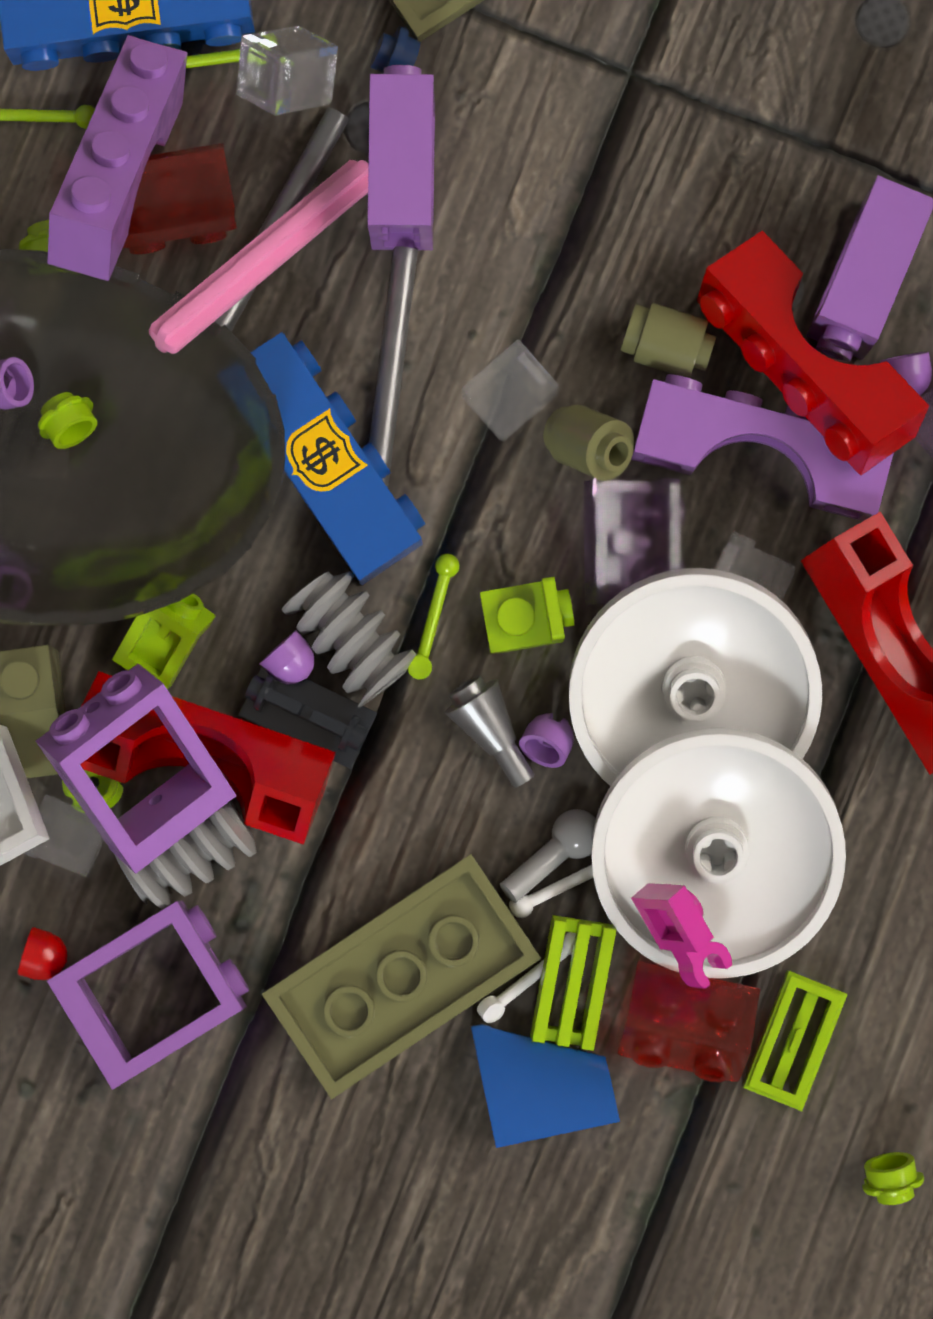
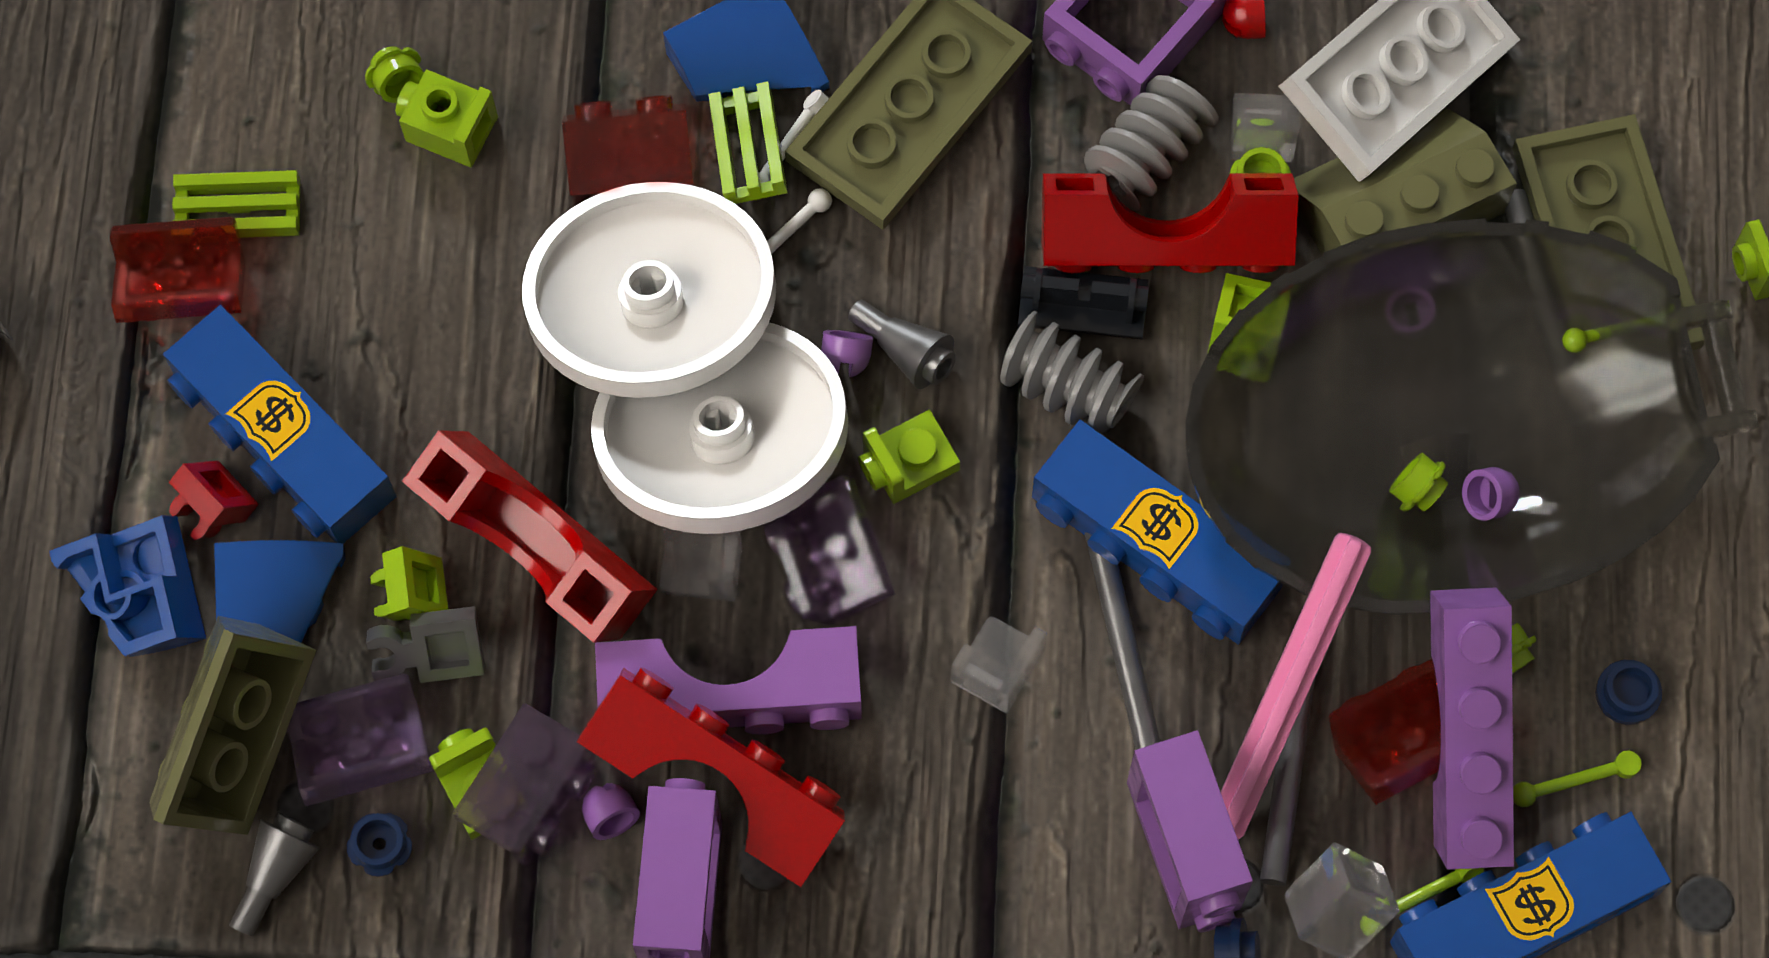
camera: 160 degrees right, 15 degrees down
(170, 809) = (1184, 145): medium lavender window -> none
(290, 660) = (1119, 335): medium lavender hinge -> none
(447, 567) = (1000, 480): lime hinge -> none
(570, 839) = (794, 273): light grey bar -> none
(589, 441) = (903, 627): olive brick -> none
(668, 340) = (859, 758): olive brick -> none
(679, 926) = (668, 209): dark pink plate -> none
(807, 1076) = (519, 212): lime tile -> none
(840, 1095) = (455, 132): none -> lime brick

